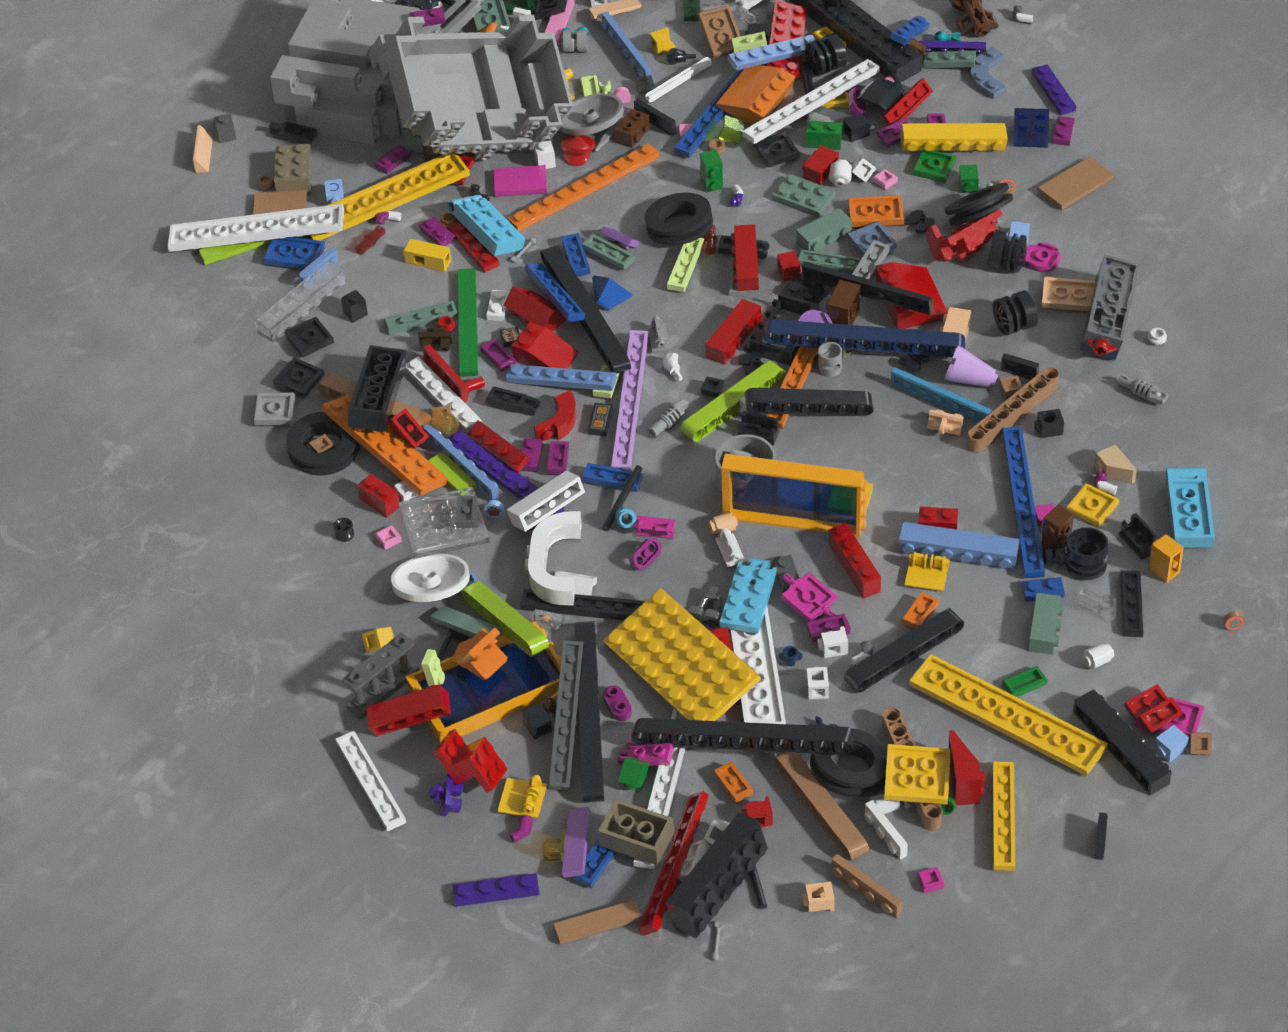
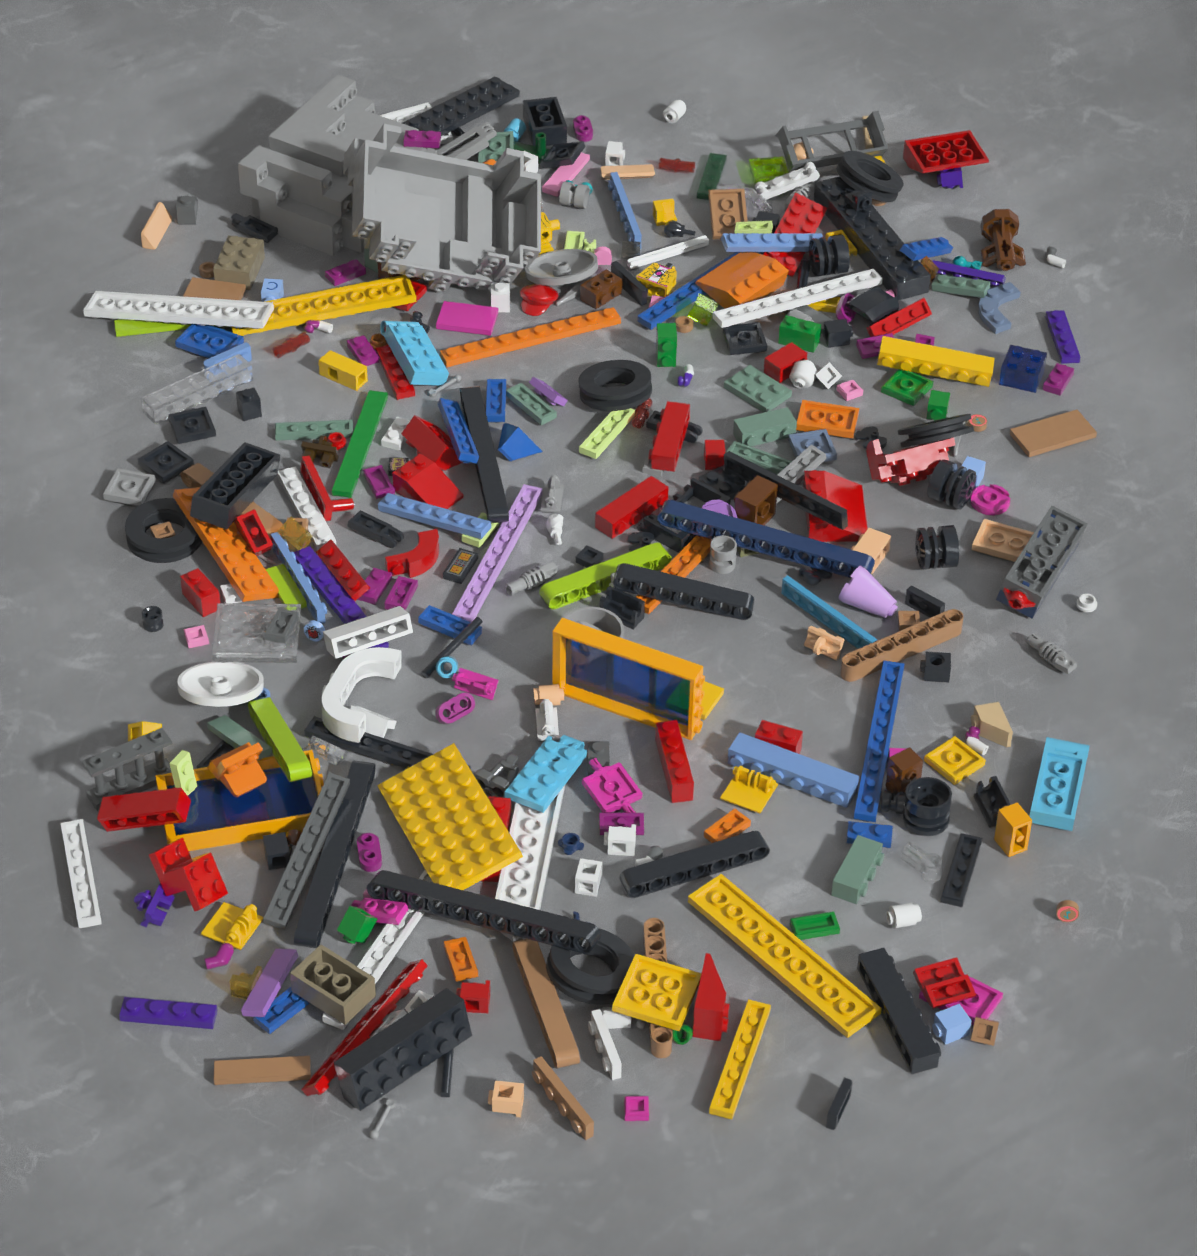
camera: 10 degrees right, 5 degrees down
(680, 108) = (658, 279): none -> yellow torso

